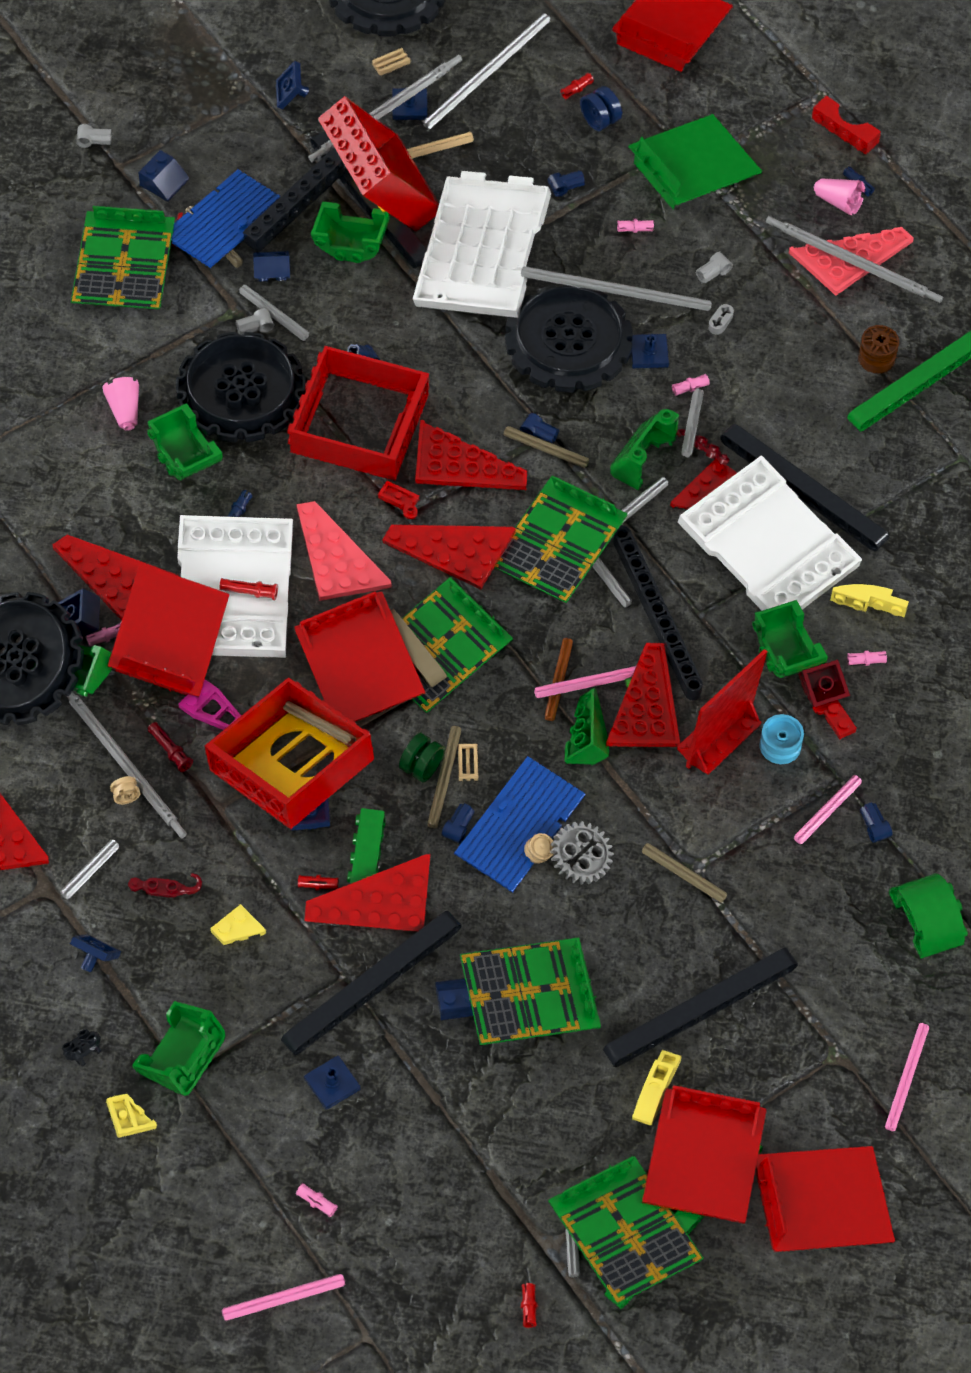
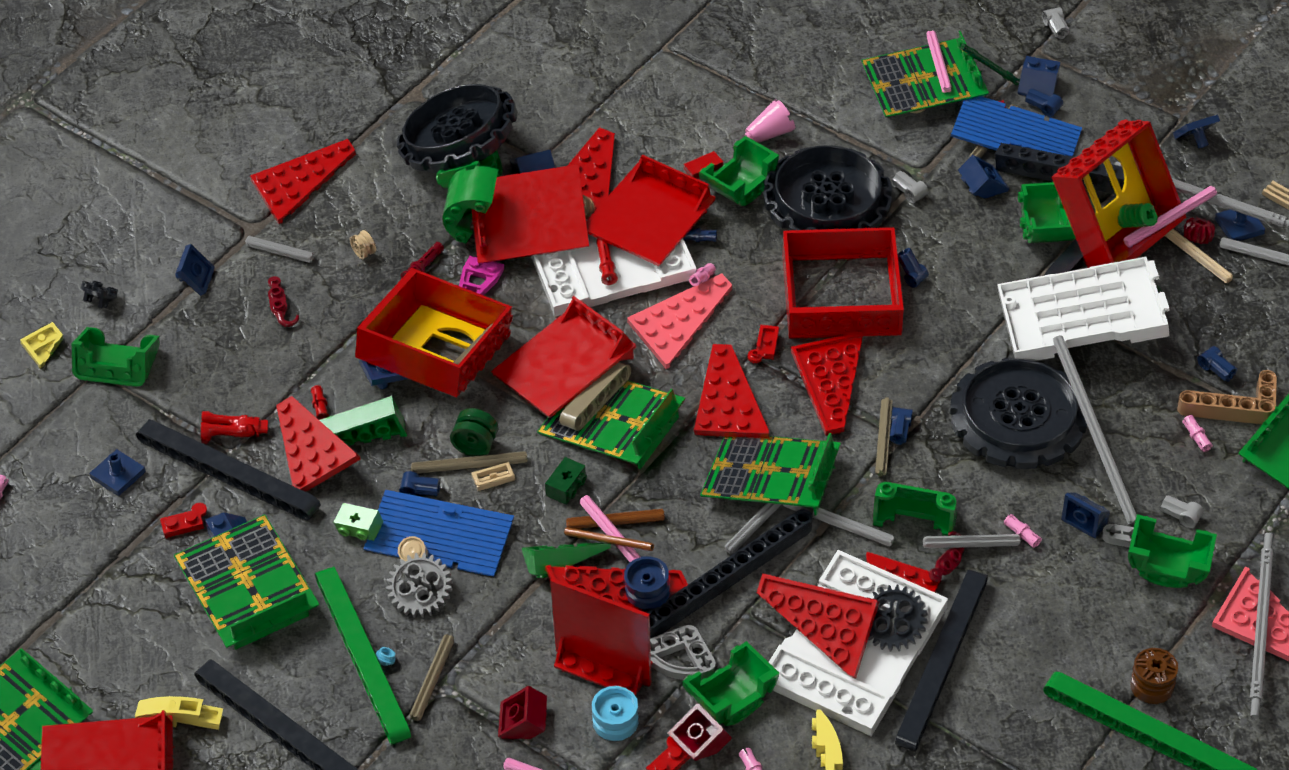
camera: 75 degrees right, 10 degrees down
(115, 240) = (939, 61): none -> bright pink axle
(126, 764) = (392, 242): light grey axle -> none
(134, 669) = (466, 192): none -> green cylinder
(137, 204) = (1004, 73): none -> dark green piece
(144, 476) = (694, 167): none -> red tile
(198, 181) = (1048, 104): none -> dark blue piece
(204, 531) = (650, 210): none -> red door
(237, 926) = (256, 362): light yellow wing -> none
(274, 312) = (931, 198): light grey axle -> none
(298, 519) = (702, 274): none -> bright pink pin
(322, 956) = (233, 426): none -> red piece
(398, 160) = (1137, 215): none -> green piece
(400, 141) = (1170, 216): none -> bright pink axle
(411, 133) = (1199, 230): none -> dark red gear
(420, 1035) = (184, 522): none -> red hinge
(490, 873) = (358, 522): none -> brick
(501, 703) = (565, 480): none -> dark green brick
(589, 687) = (609, 539): none -> dark orange piece
(627, 175) = (1231, 406): none -> medium nougat beam
(639, 921) = (363, 656): none -> green beam
(649, 351) = (1046, 487): dark blue tile -> none
(649, 902) = (385, 656): none -> medium azure plate
(662, 667) = (647, 582): none -> dark blue wheel
(695, 333) = (1084, 514): none -> dark blue slope
(720, 666) = (687, 643): none -> light grey beam
(751, 546) = (828, 618): none -> red wing
(754, 812) = (523, 714): none -> dark red slope
(761, 512) = (913, 618): none -> black gear
(768, 288) = (1167, 558): none -> green cylinder

